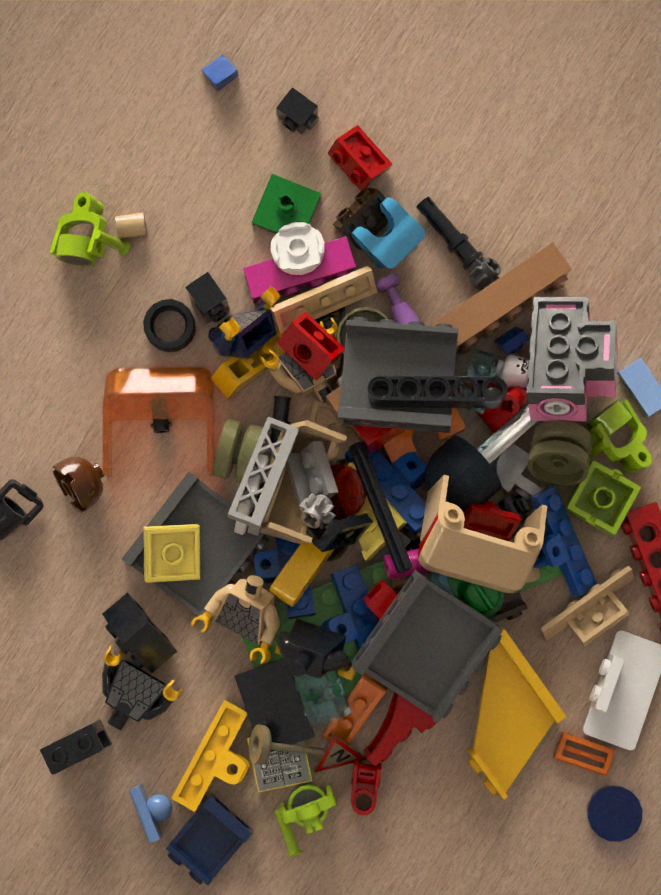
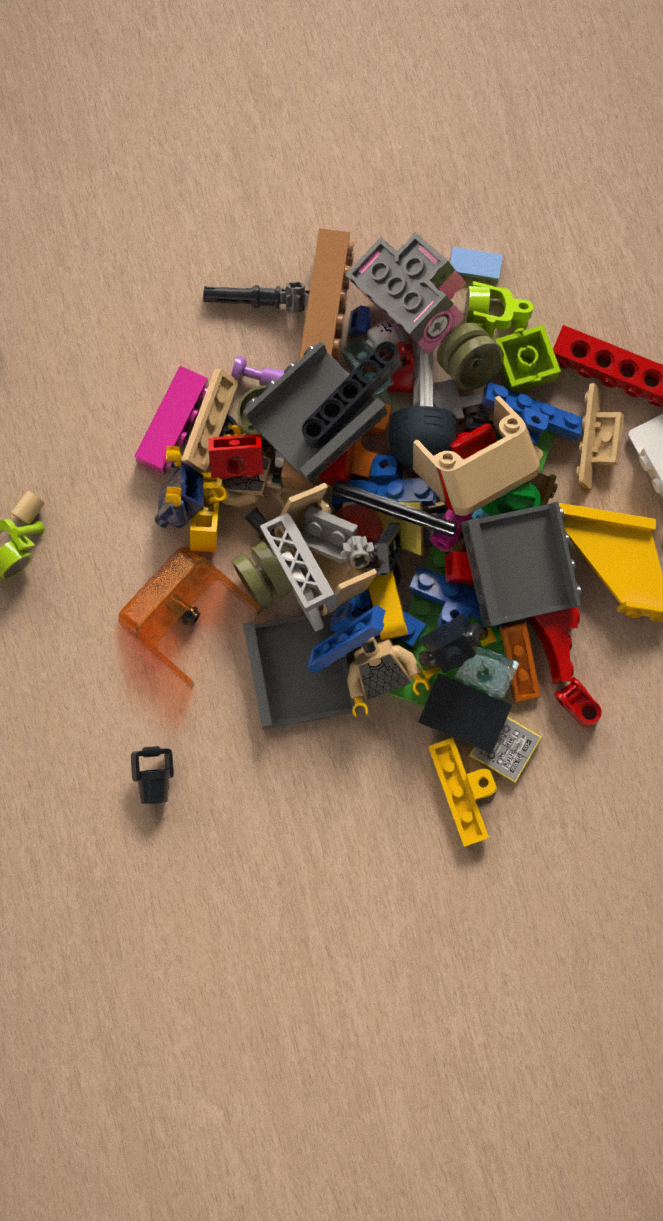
camera: 45 degrees left, 5 degrees down
(75, 747) = (366, 876): black panel -> none
(79, 481) = (177, 707): reddish brown cylinder -> none
(133, 691) = (364, 804): torso -> none
(138, 634) = (325, 762): black brick -> none
(151, 811) = (460, 868): medium blue tile -> none
(154, 311) = (111, 531): black tyre -> none
(171, 553) = (290, 688): light yellow tile -> none
(208, 298) = (133, 499): black brick -> none
(208, 840) = (517, 847): dark blue panel -> none
(247, 564) = (348, 635): none -> blue plate
(284, 204) = (119, 391): green tile -> none
(297, 112) = (58, 320): black brick -> none
(297, 248) = (157, 405): white tile -> none
(307, 808) = (557, 756): lime piece -> none
(334, 755) = (538, 703): dark tan piece -> none
(359, 157) = (131, 309): red bracket -> none
(362, 213) = (177, 342): dark brown bracket -> none
(398, 241) = (216, 331): dark azure piece -> none

